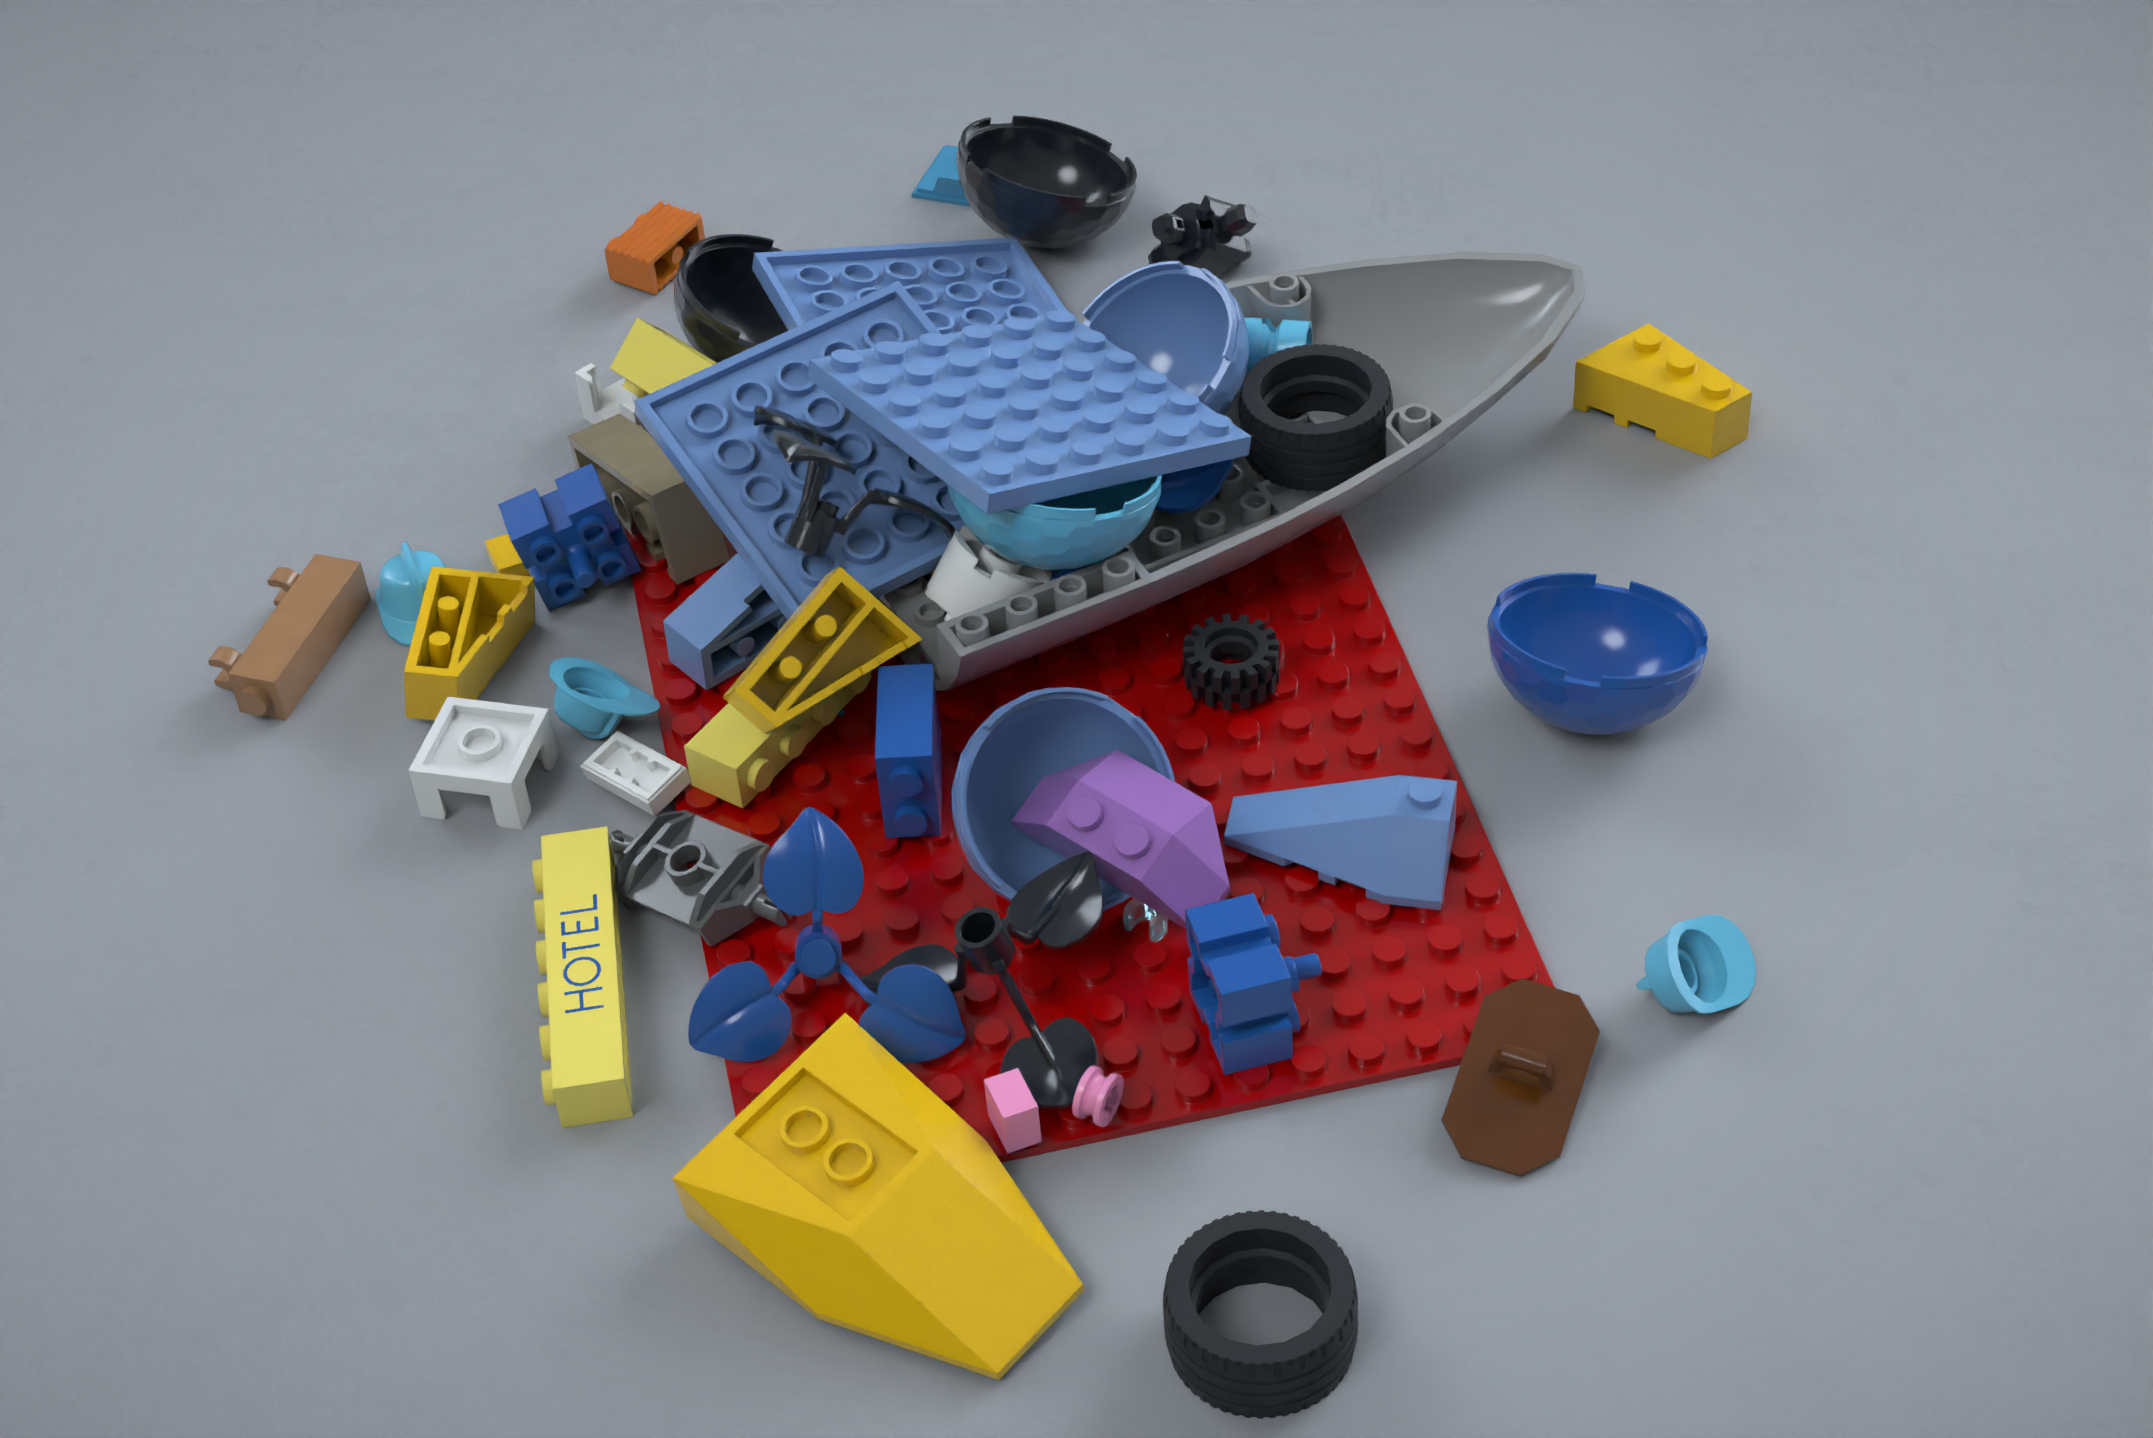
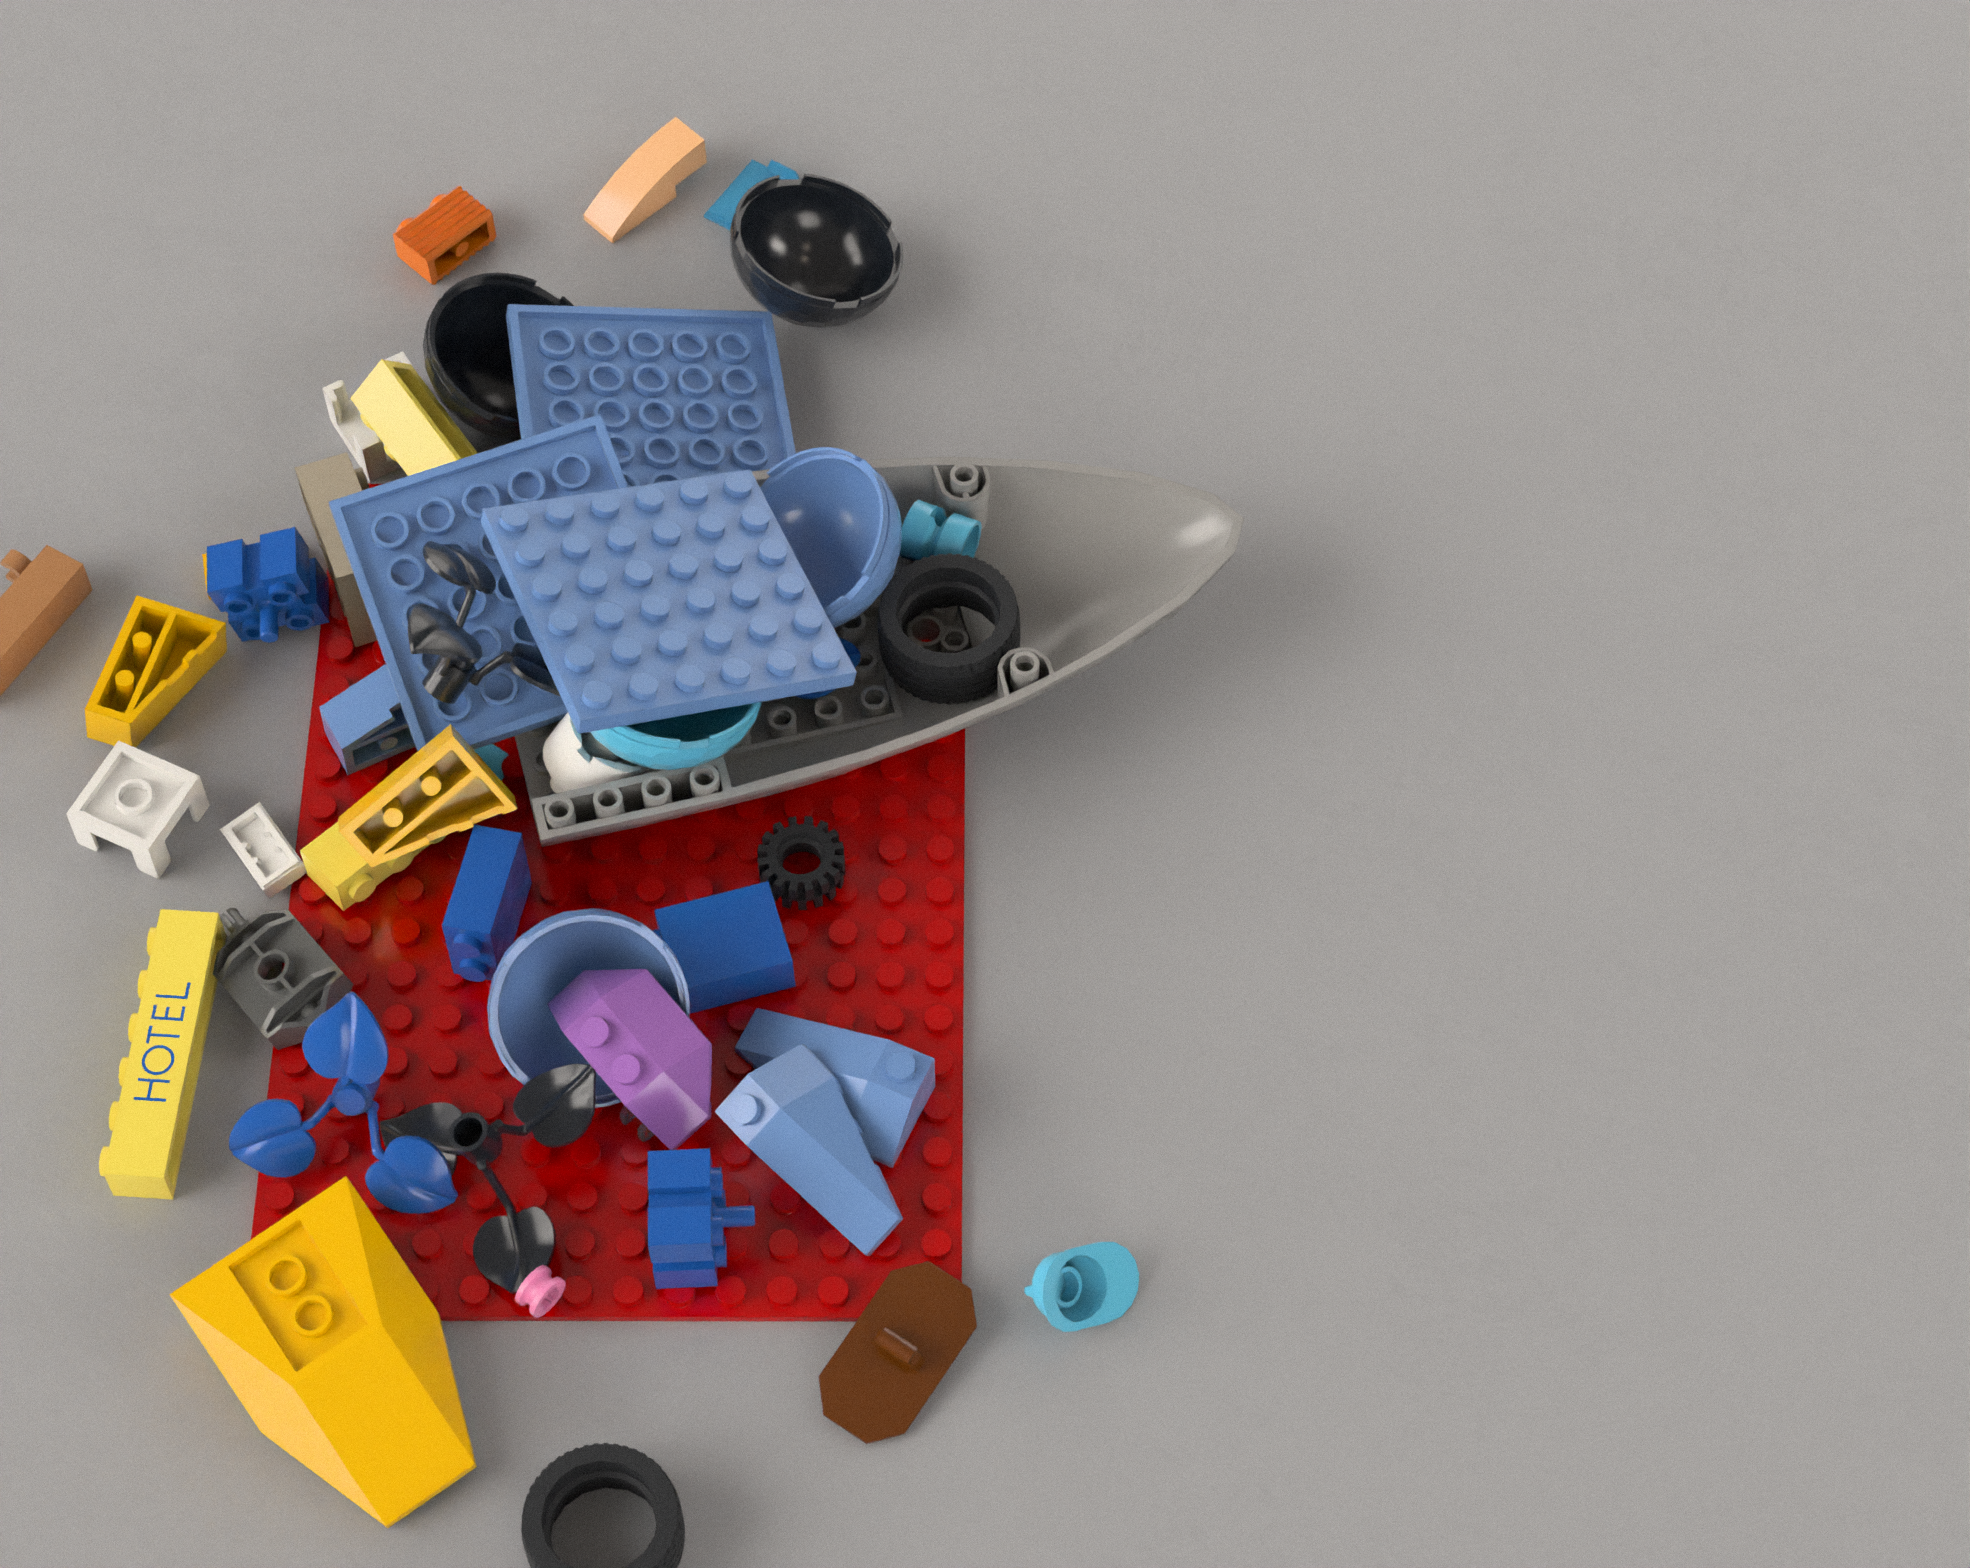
camera: 10 degrees right, 15 degrees up
(402, 590) = (117, 590): medium azure piece -> none
(595, 697) = (251, 761): medium azure piece -> none
(847, 171) = (646, 180): none -> light nougat slope
(1012, 1110) = (467, 1287): bright pink piece -> none
(1204, 235) = (940, 358): black piece -> none
(1205, 736) = (728, 946): none -> blue brick
(1349, 889) = (804, 1132): none -> medium blue wedge
(1595, 651) = (1110, 938): blue piece -> none
(1664, 388) = (1301, 641): yellow wedge -> none

